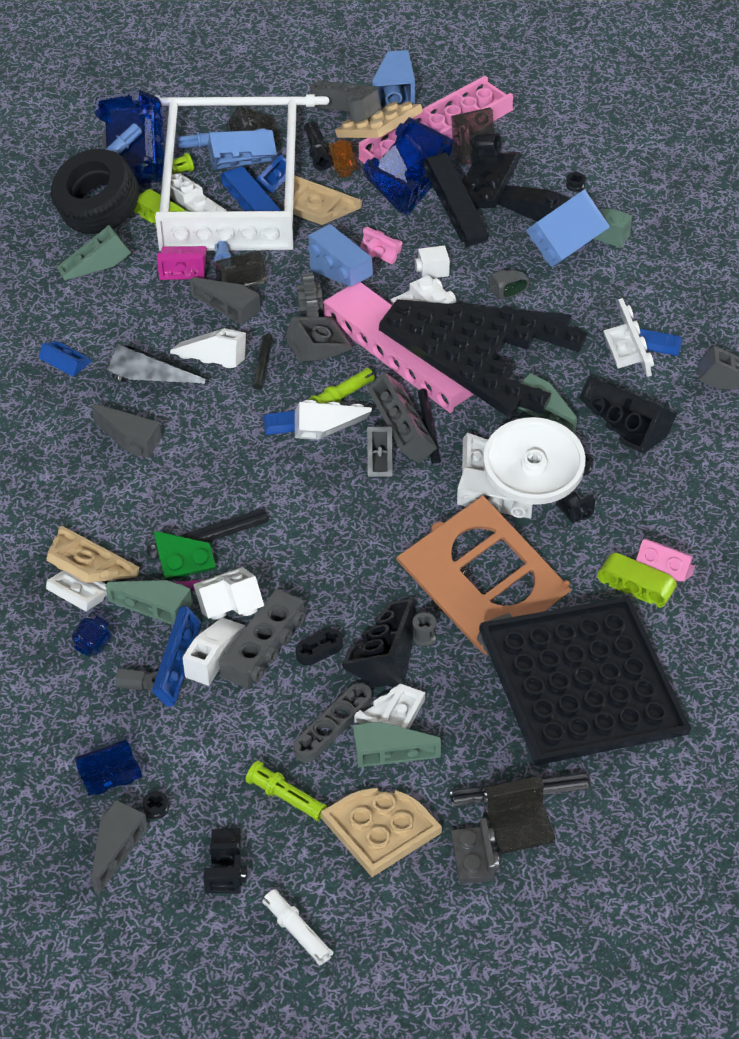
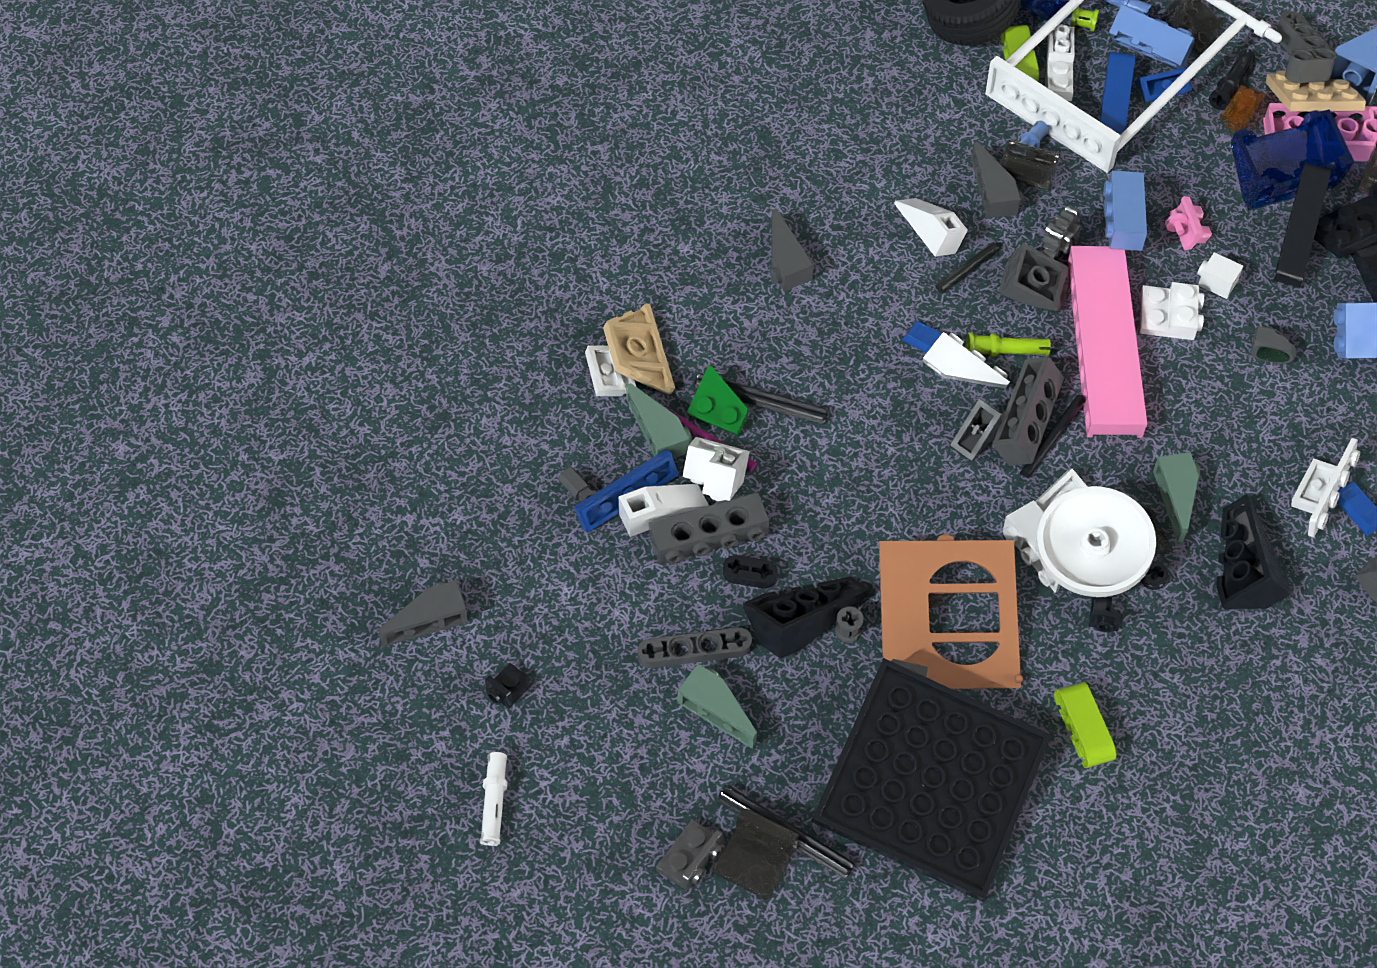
camera: 40 degrees right, 10 degrees up
(63, 357) = (803, 145): blue slope -> none
(91, 635) = (578, 421): clear blue head -> none
(98, 254) = (922, 63): sand green slope -> none
(107, 768) = (481, 547): clear blue bracket -> none
(139, 365) = (854, 196): wedge -> none
(155, 812) = (482, 611): black bush -> none
(181, 262) = (990, 119): dark pink bracket -> none
(225, 879) = (477, 713): black bracket -> none
(276, 785) = (595, 666): lime pin -> none
(320, 202) = (1175, 140): tan wing -> none
(380, 826) = (640, 769): tan plate -> none
(395, 708) = (752, 677): white wing -> none
(467, 339) = (1159, 368): black wing -> none
(666, 560) = (1125, 729): bright pink bracket -> none

